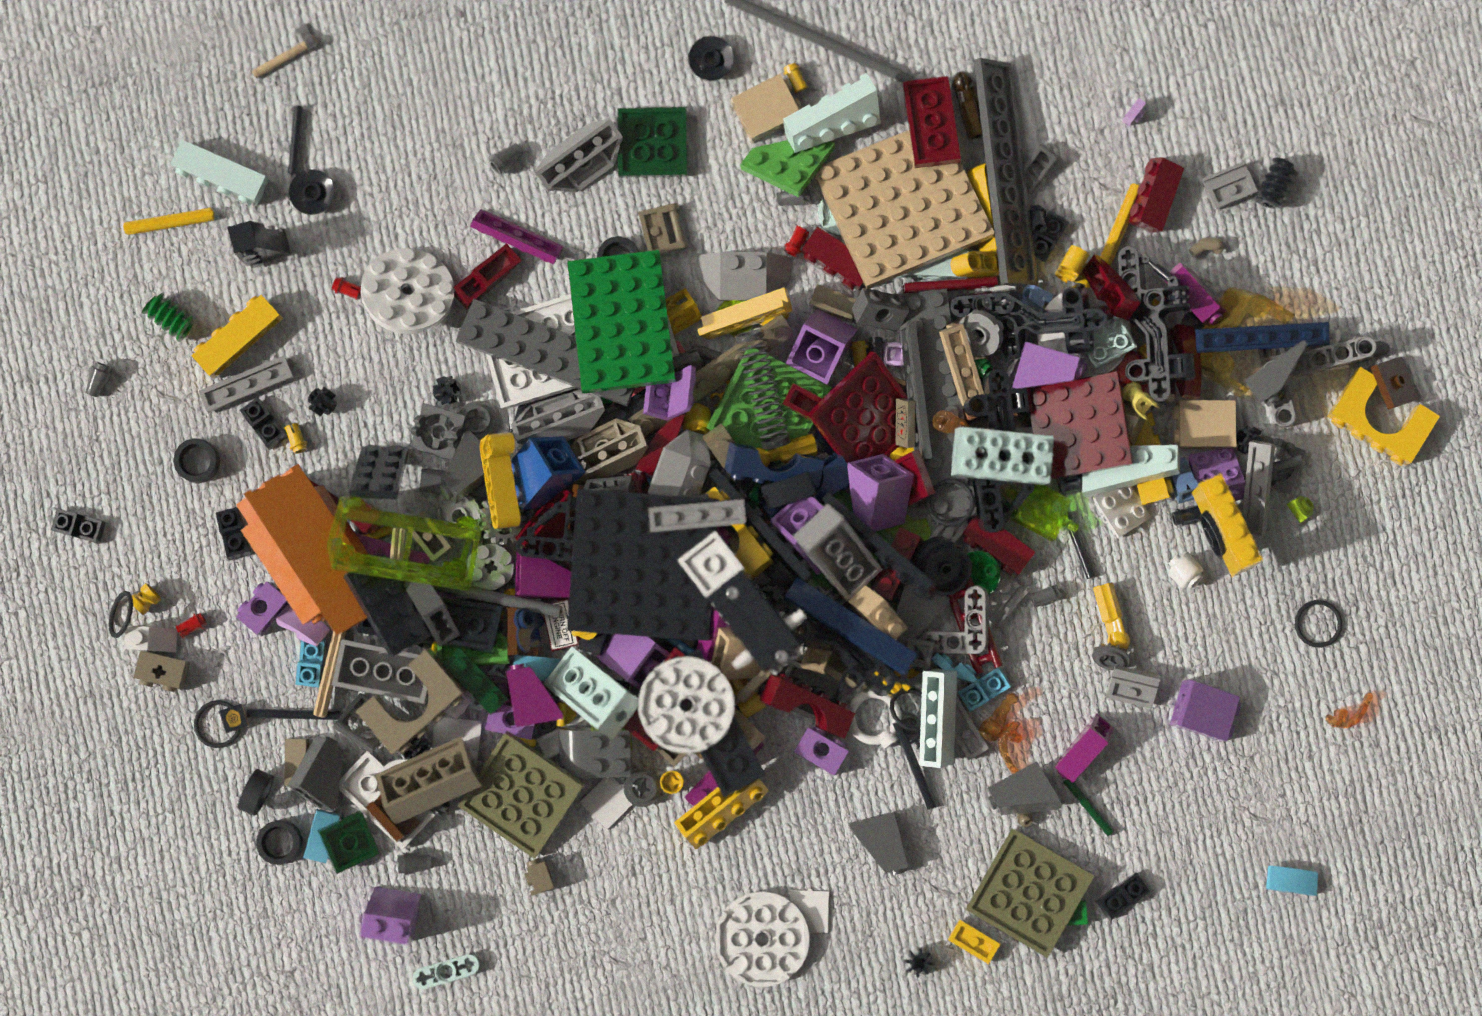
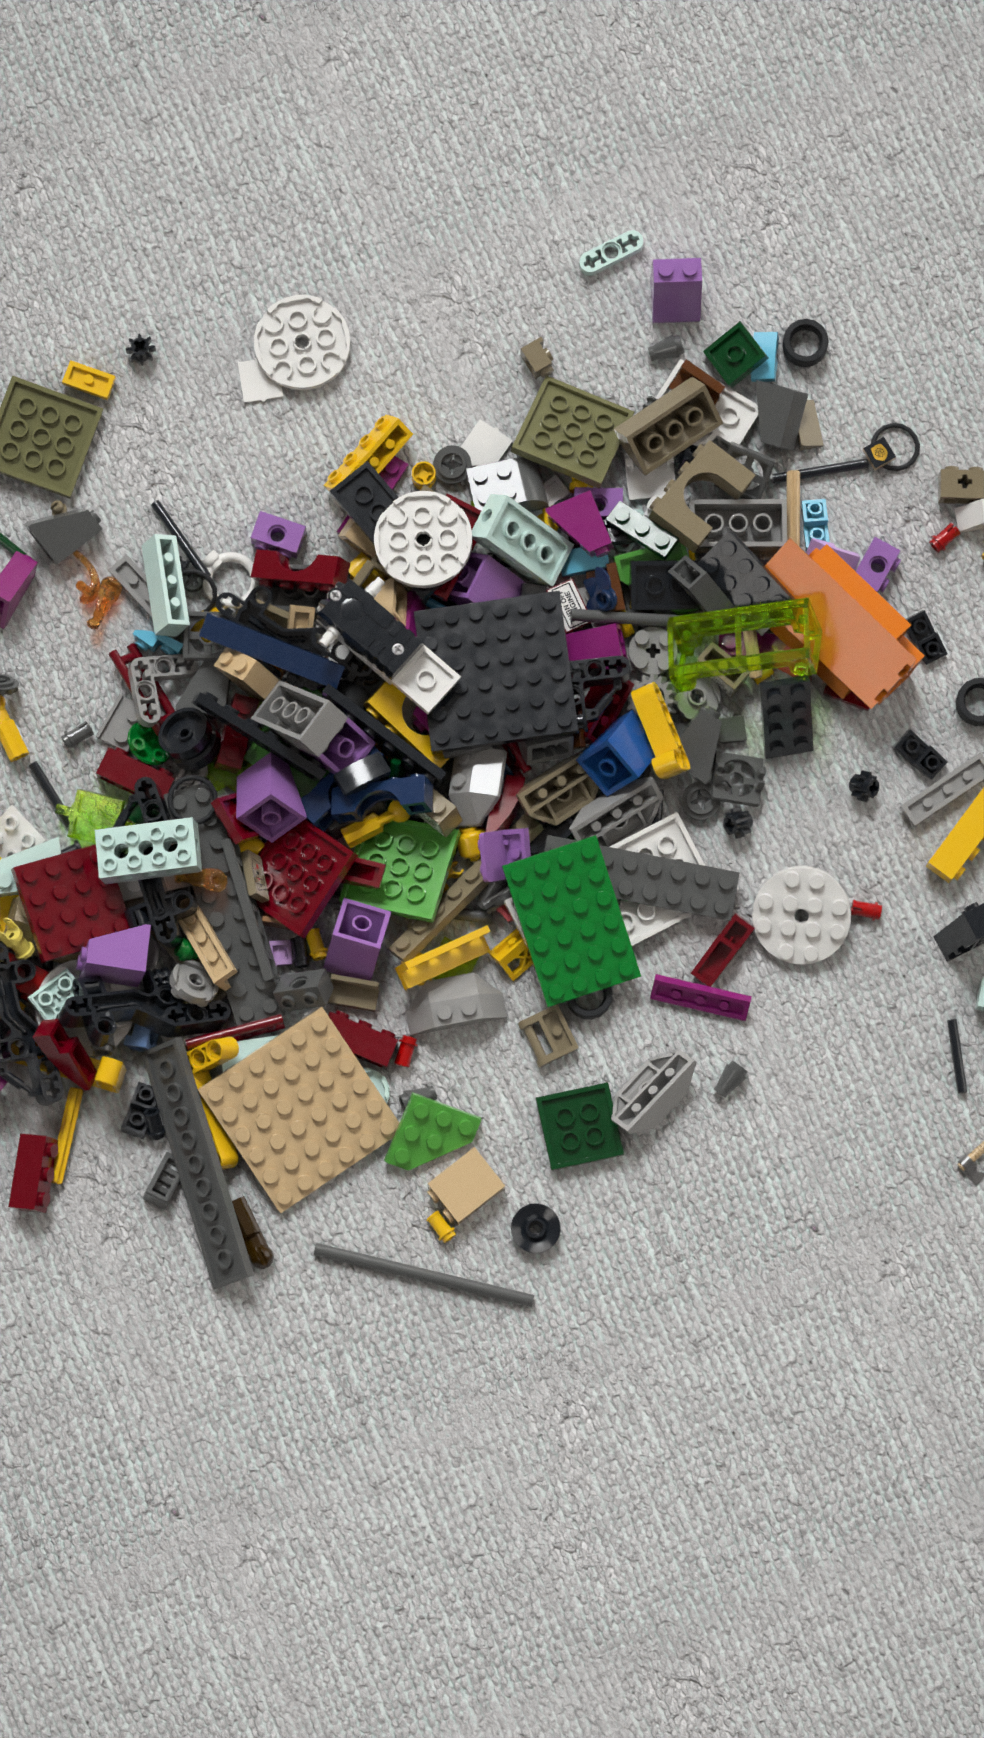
camera: 165 degrees right, 5 degrees down
(255, 792) = (839, 383): black tyre -> none
(296, 439) = (881, 742): yellow pin -> none
(303, 184) = (928, 989): black dish -> none
(697, 515) = (450, 726): light grey plate -> none
(777, 441) = (388, 835): dark grey piece -> none
(834, 116) = (392, 1185): light aqua wedge -> none
(883, 841) = (200, 459): dark grey slope -> none
(931, 122) = (286, 1201): dark red plate -> none
(985, 689) = (122, 629): medium azure slope -> none
(1135, 113) = (70, 1259): lavender plate -> none

